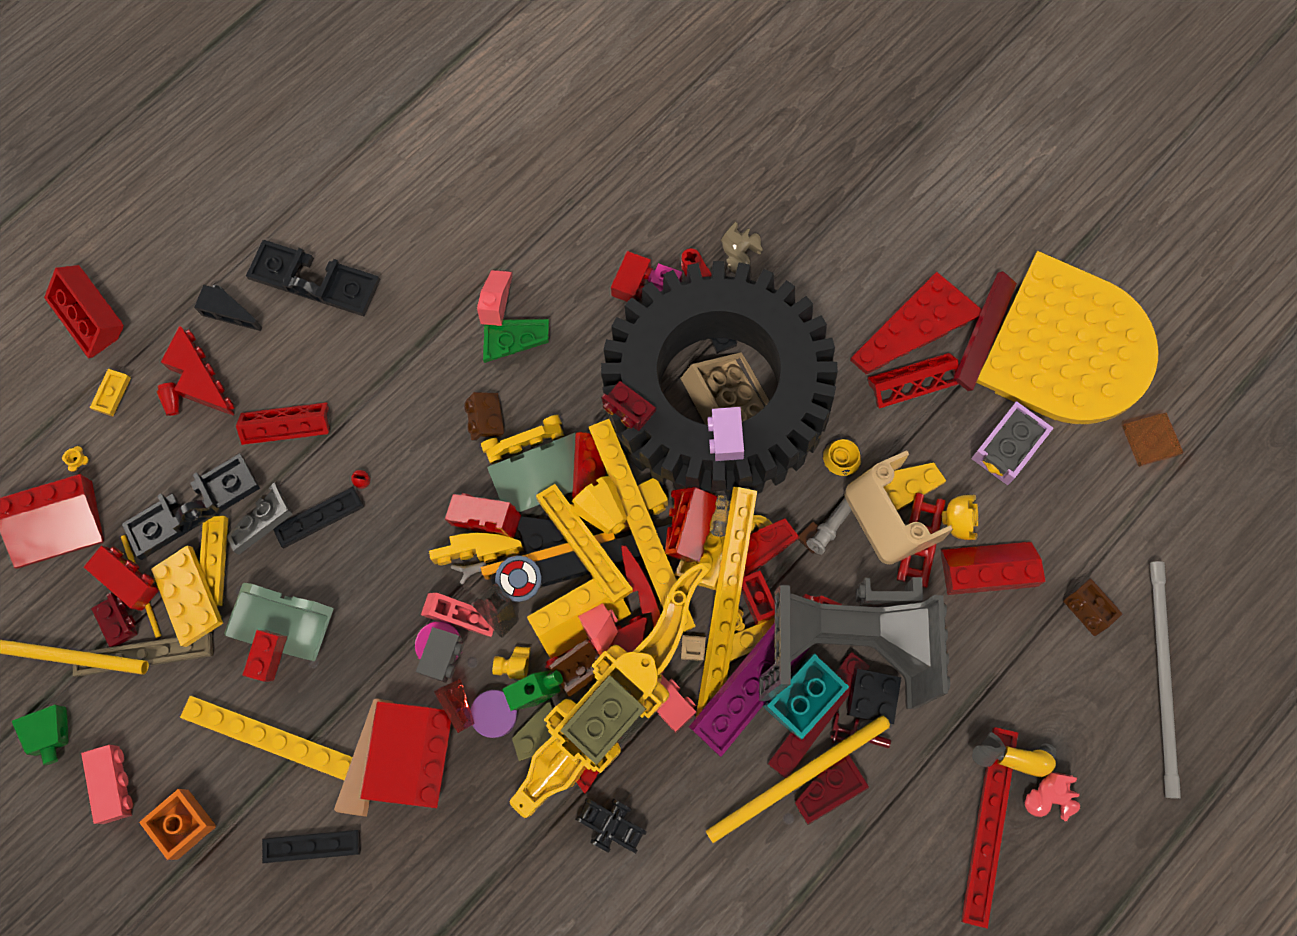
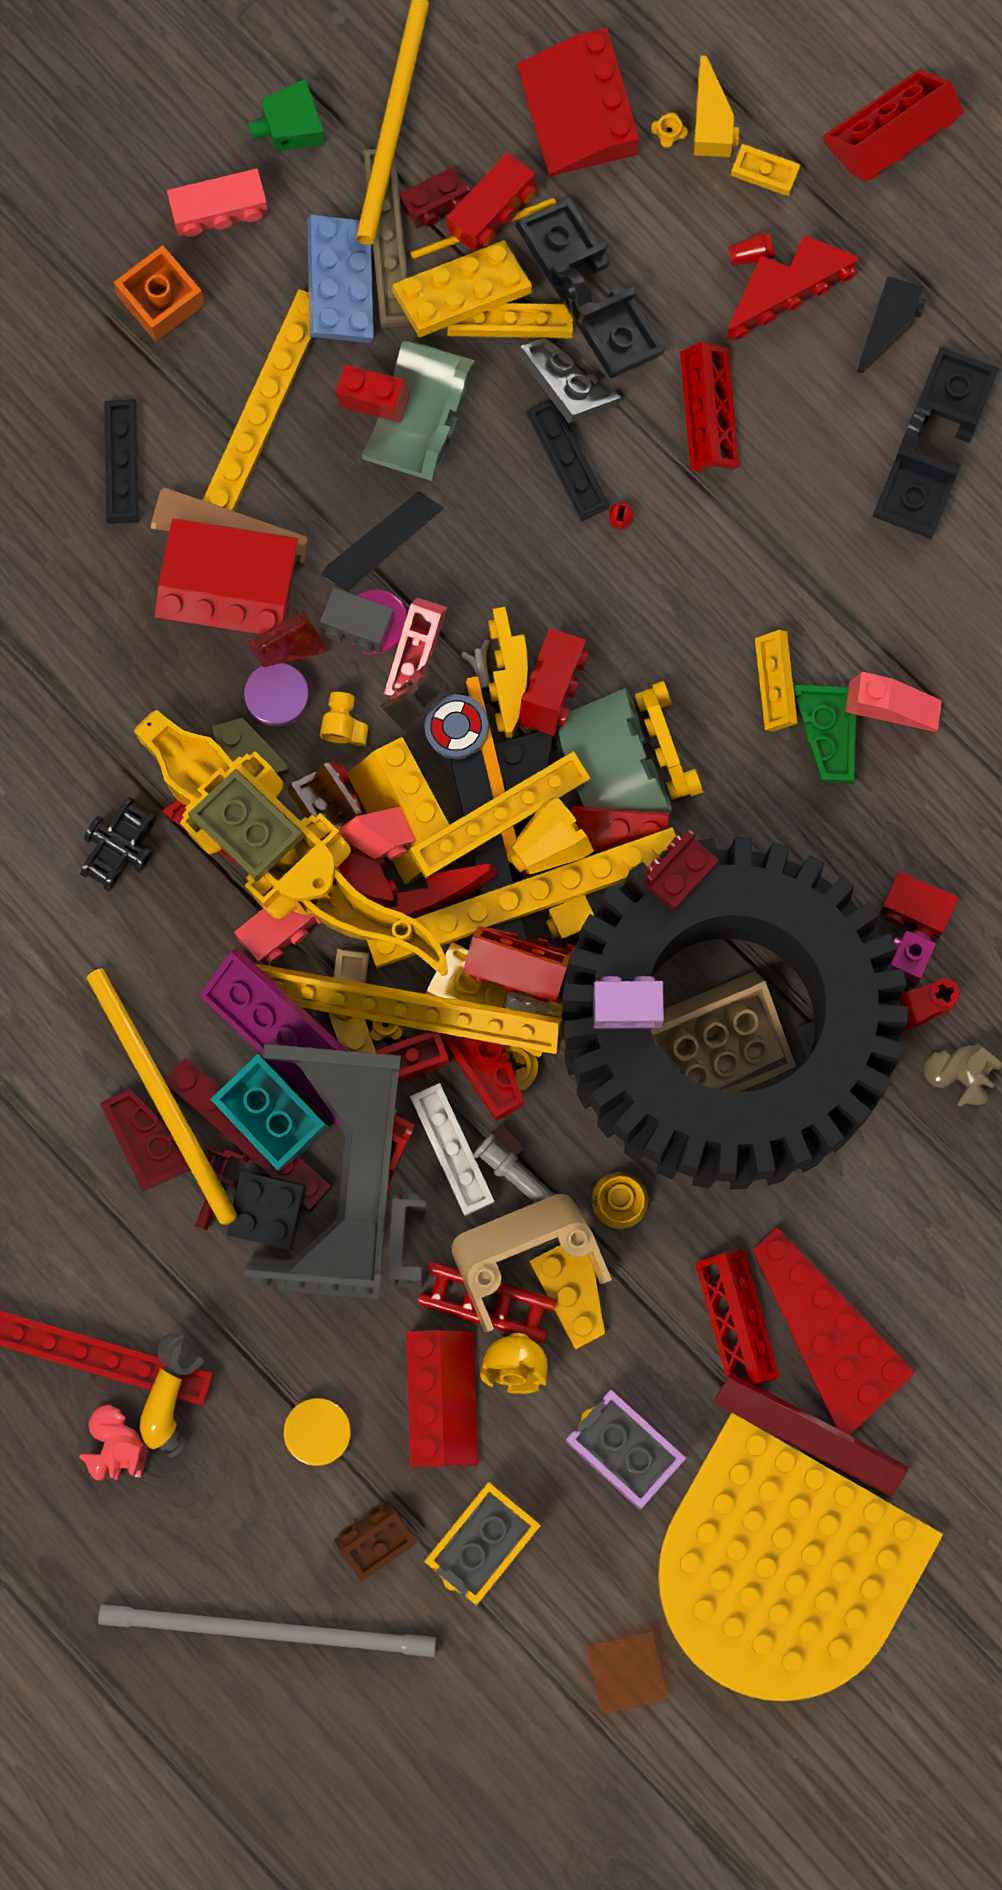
camera: 90 degrees right, 5 degrees up
(68, 427) = (713, 116): none -> yellow slope
(174, 687) = (339, 280): none -> medium blue plate
(377, 646) = (381, 541): none -> black sticker
(479, 371) = (776, 680): none -> yellow plate
(484, 415) = (707, 686): reddish brown bracket -> none
(540, 686) = (303, 754): green torso -> none
(821, 567) = (452, 1149): none -> white plate
(1024, 651) = (317, 1432): none -> yellow tile
(1088, 532) = (482, 1544): none -> dark grey piece

